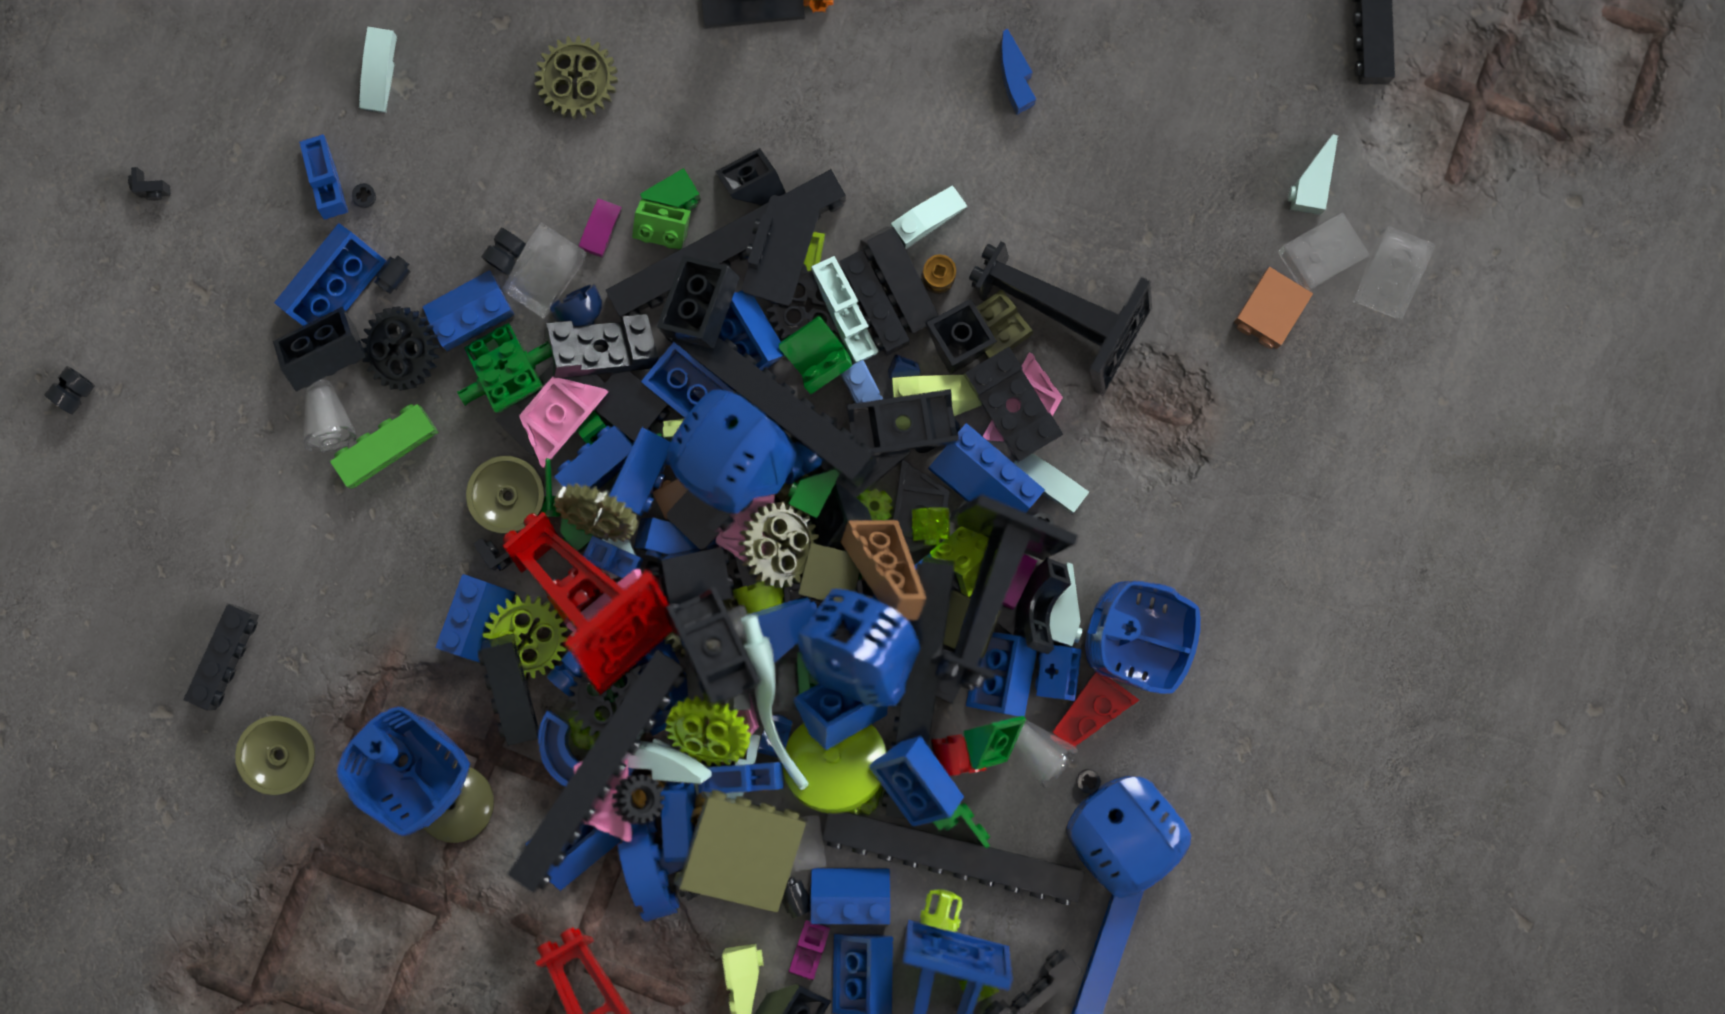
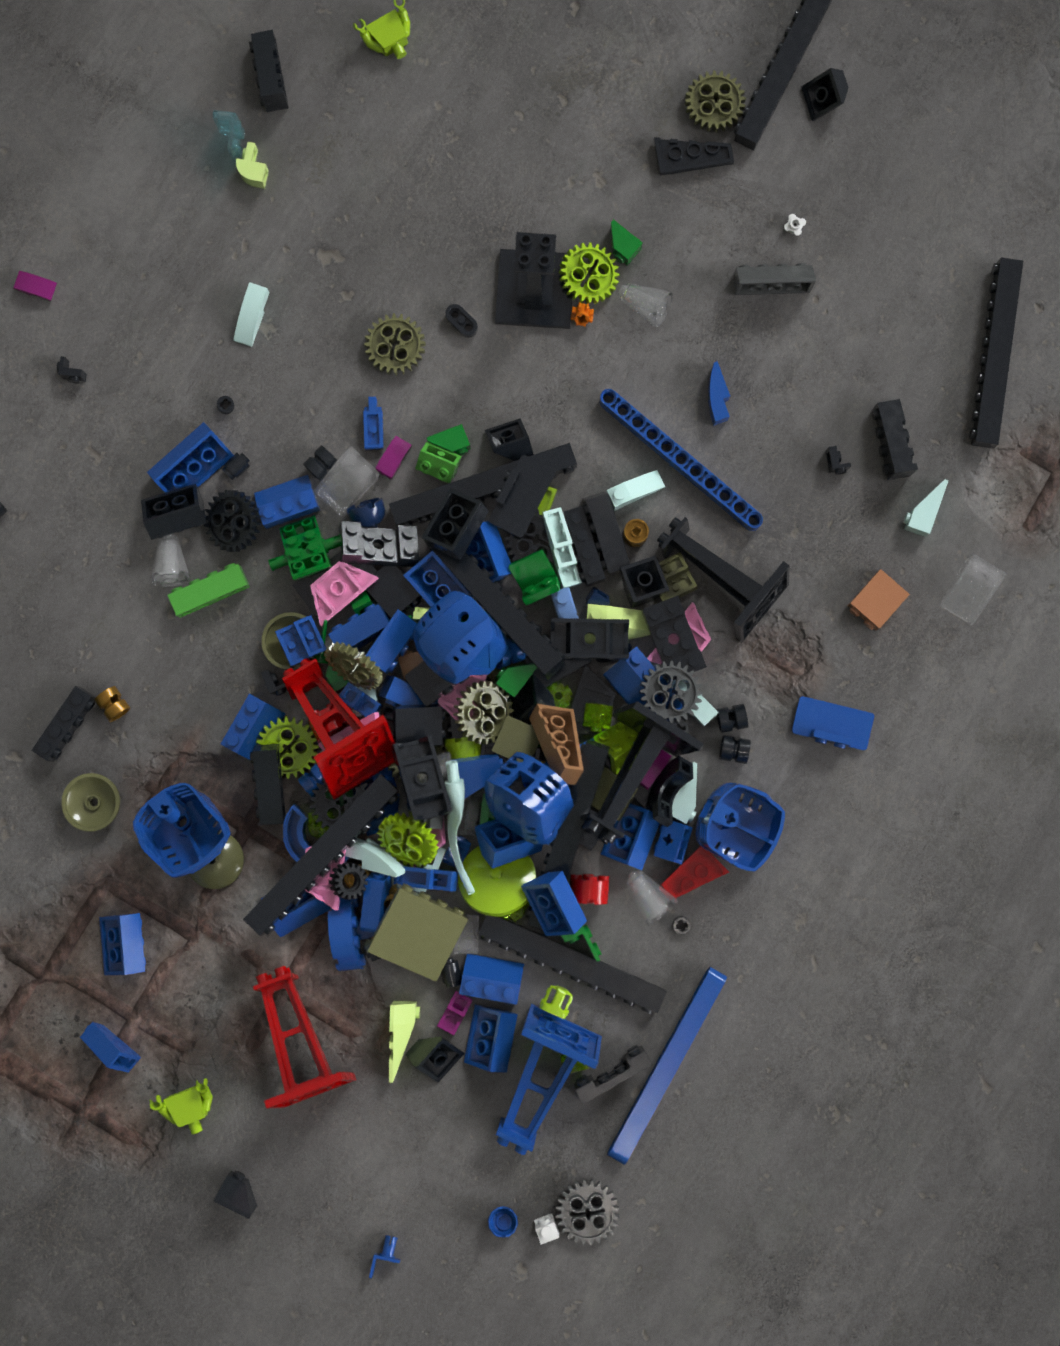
camera: 20 degrees right, 0 degrees up
(80, 79) = (35, 285): none -> magenta slope
(281, 619) = (111, 702): none -> pearl gold wheel
(323, 177) = (198, 386): blue slope -> none
(350, 937) = (122, 944): none -> blue slope
(519, 492) = (300, 640): none -> blue slope
(566, 190) = (373, 426): none -> blue hinge
(660, 32) = (463, 320): none -> black plate
(975, 156) = (683, 469): none -> blue beam
(992, 742) = (615, 885): green slope -> none
(999, 472) = (687, 698): none -> dark grey gear
(1116, 492) = (738, 721): none -> black wheel
(1119, 537) = (734, 749): none -> black wheel
(1137, 844) = (708, 978): blue piece -> none
(1182, 133) = (833, 459): none -> black bracket
(1241, 481) = (832, 723): none -> blue bracket
(1257, 94) = (893, 440): none -> black wedge
(1323, 252) = (923, 565): clear slope -> none

